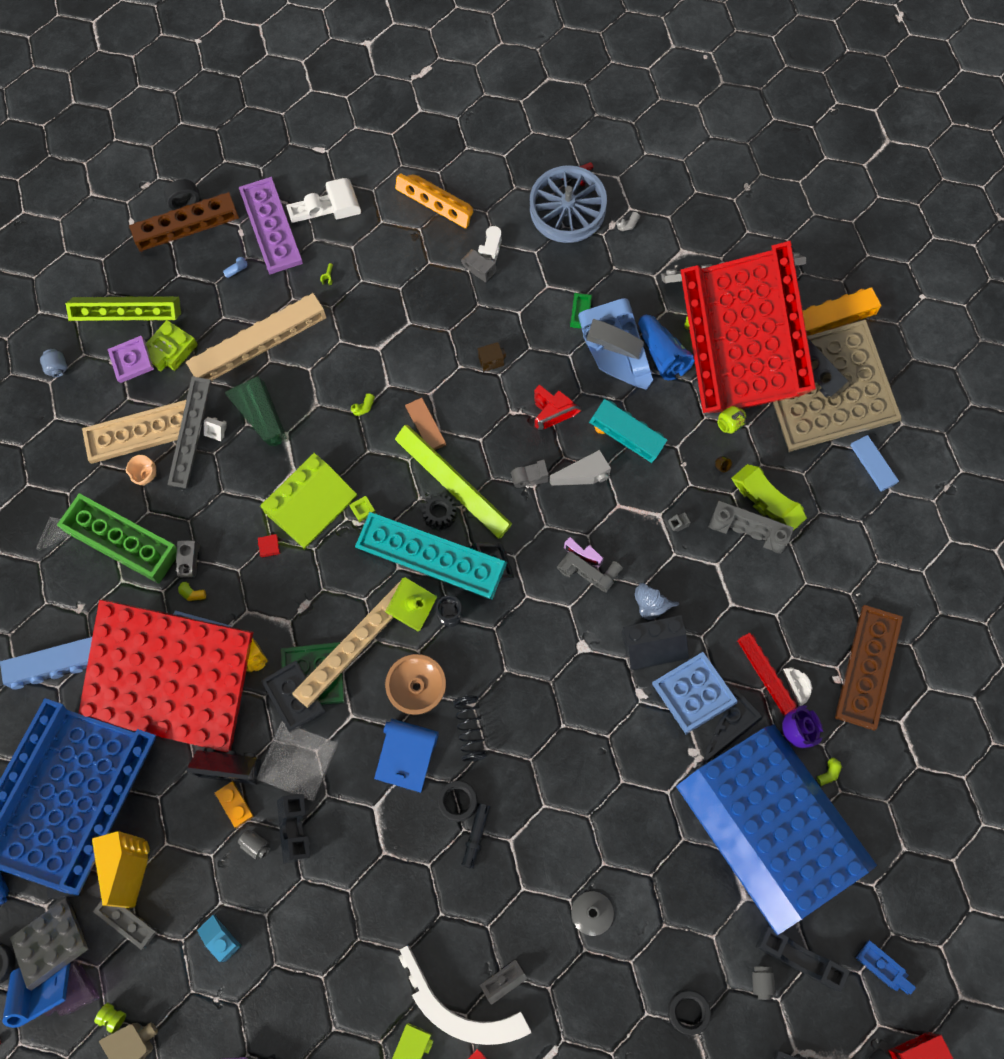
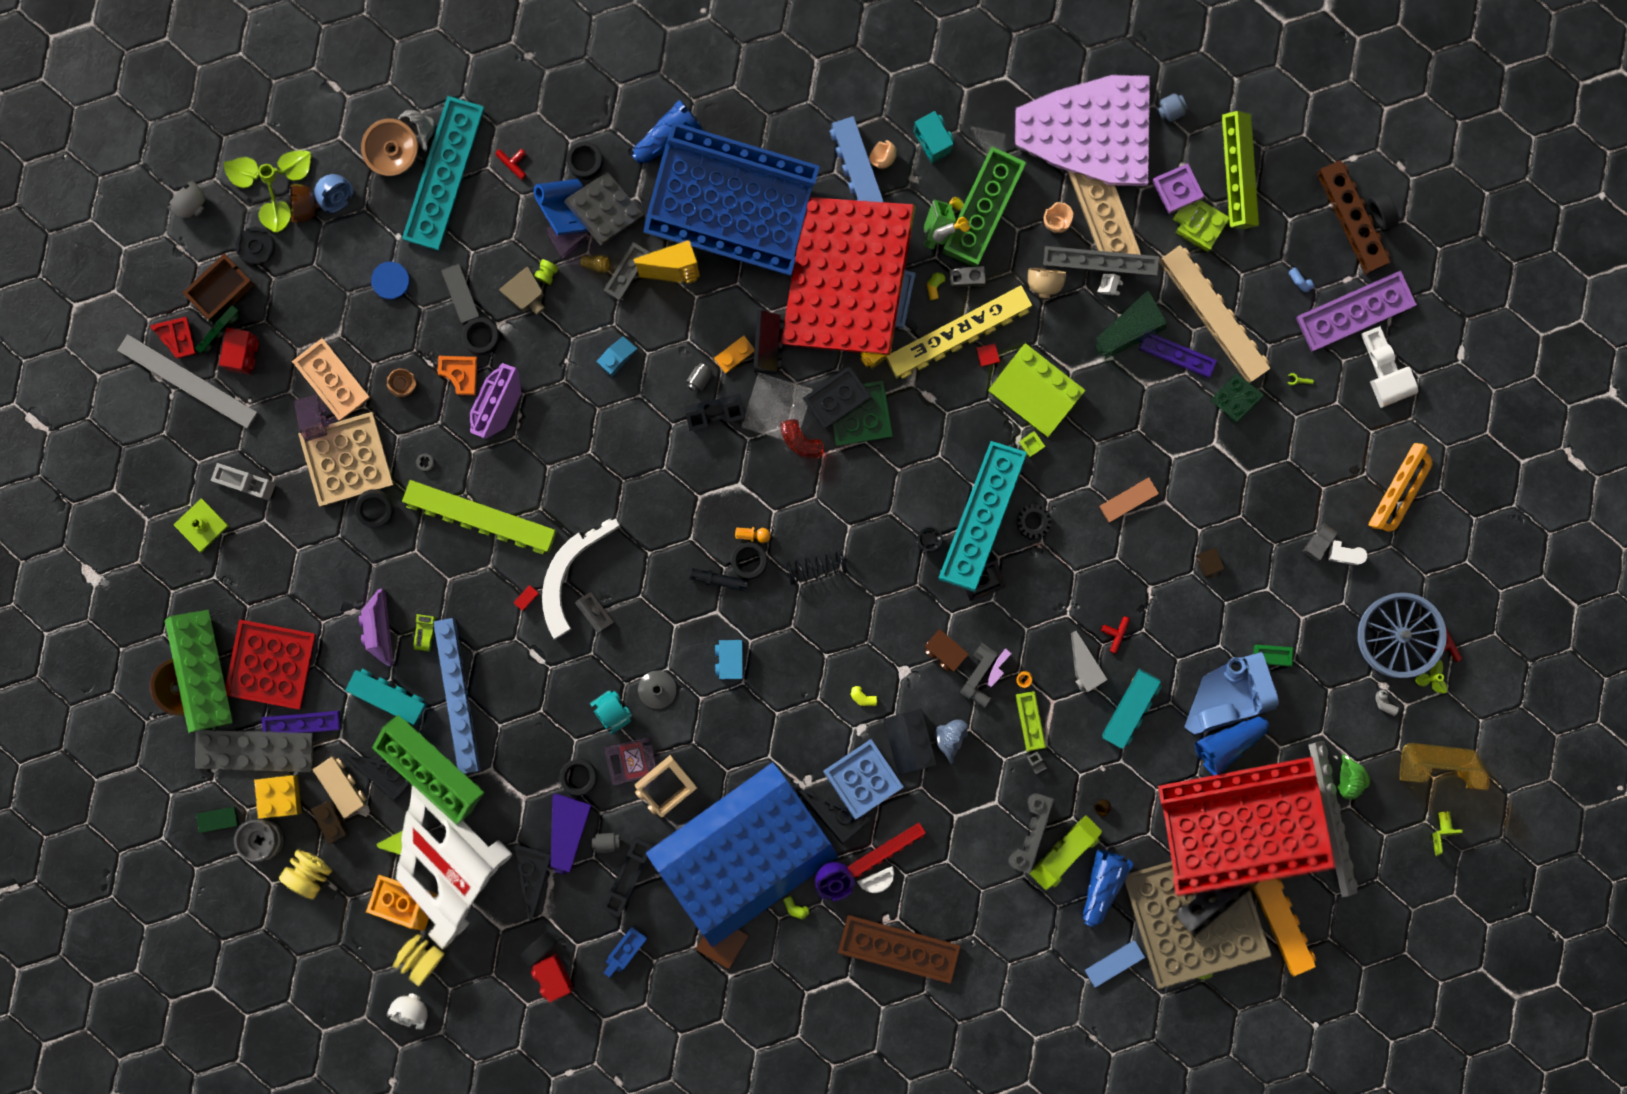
camera: 80 degrees right, 15 degrees up
(37, 582) = (933, 136): none -> teal brick
(47, 634) = (883, 155): none -> light nougat hair
(60, 436) = (1091, 129): none -> lavender wing
(109, 957) = (597, 263): none -> clear yellow cone
(126, 578) = (942, 221): none -> torso
(202, 484) = (1046, 281): none -> tan cylinder
(242, 573) = (959, 332): none -> light yellow brick
(291, 373) = (1179, 355): none -> dark purple tile
(335, 739) = (798, 442): none -> clear red cylinder
(338, 325) = (1236, 398): none -> clear green hinge
(345, 652) = (892, 451): tan plate -> none
(360, 409) = (1144, 435): lime arm -> none
(406, 752) = (791, 510): blue door -> none
(411, 604) = (934, 501): lime tile -> none
(411, 671) = (854, 498): medium nougat dish -> none
(431, 785) = (762, 534): none -> light orange axle
(453, 481) = (1067, 532): tile -> none
(530, 475) = (1078, 610): flat silver leg -> none
(554, 408) = (1150, 634): red piece -> none
(554, 441) = (1118, 634): none -> red piece
(563, 828) = (730, 659): none -> dark azure brick
(564, 602) = (945, 650): none -> reddish brown brick
(597, 525) = (1028, 681): none -> light orange hinge
(610, 182) = (1436, 678): none -> lime plant
(610, 690) = (860, 698): none -> neon yellow arm
(614, 339) = (1230, 691): dark grey slope -> none
(617, 967) = (611, 712): none -> teal brick
(637, 526) = (1030, 721): none -> lime tile
(671, 944) = (633, 758): none -> container
(683, 191) = (1420, 758): none -> clear yellow windscreen
(697, 251) = (1353, 779): none -> bright green hair
(716, 901) = (676, 798): none -> tan window
(732, 419) = (1151, 816): lime head -> none
(742, 181) = (1446, 830): none -> lime bracket
(745, 1028) = (568, 825): none -> dark purple slope
(798, 463) = (1106, 882): none -> blue cone
(880, 851) = (726, 950): none -> reddish brown tile

